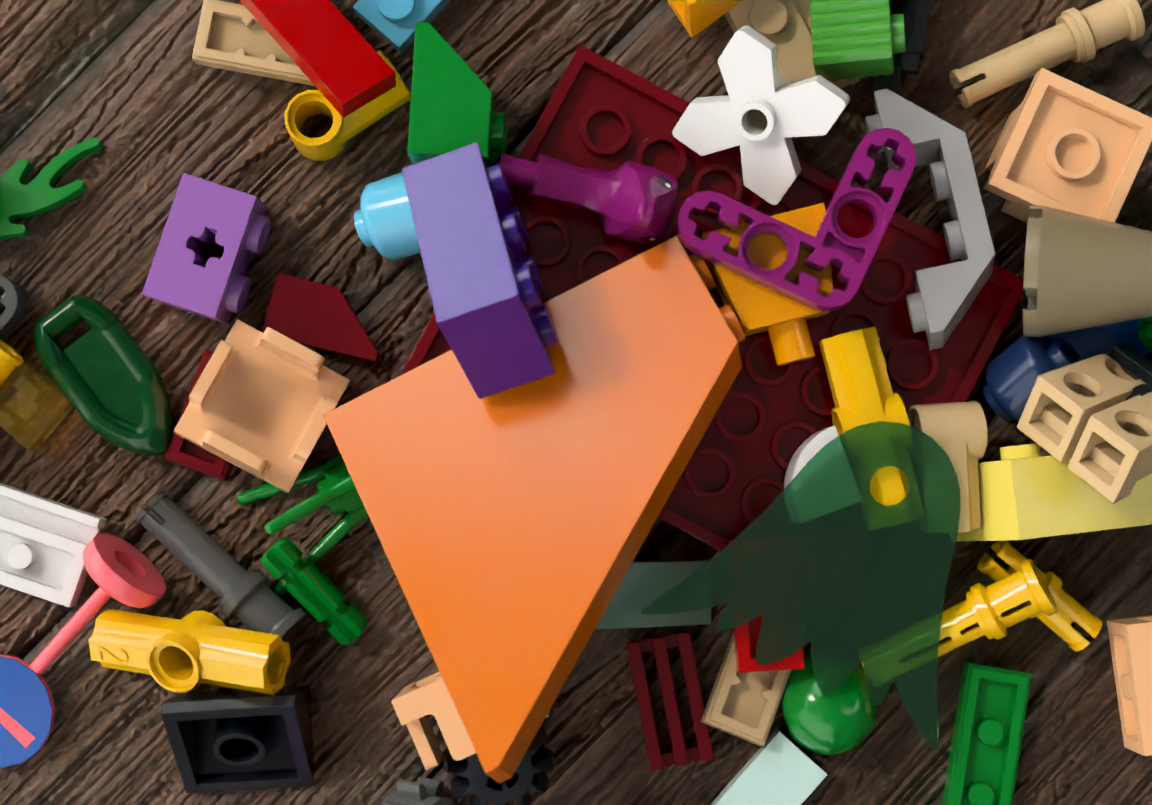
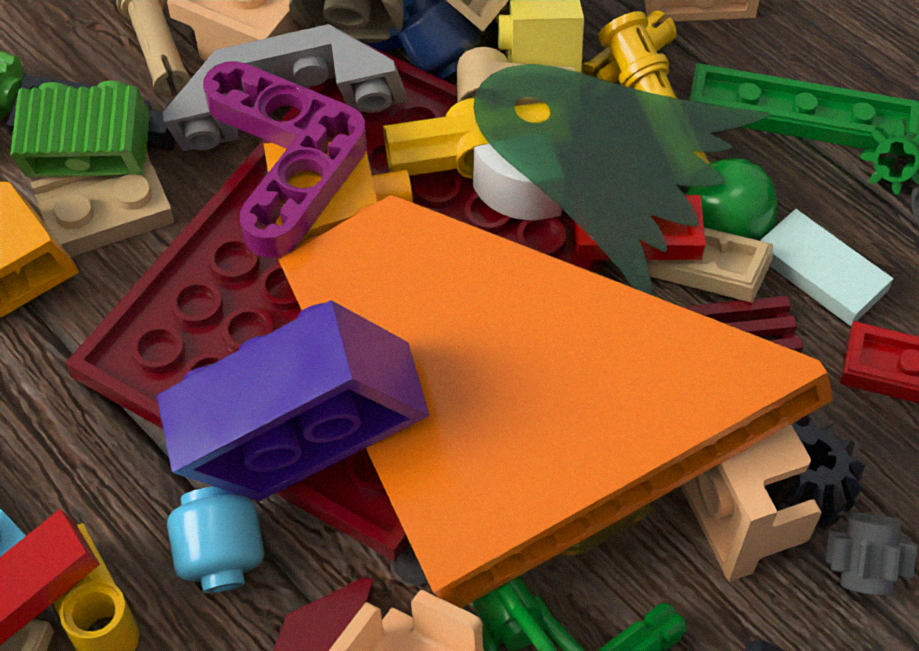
camera: 90 degrees left, 30 degrees down
(450, 103) = (104, 467): green slope -> none
(630, 201) = (235, 307): magenta animal -> none
(732, 120) = (168, 196): white plant -> none

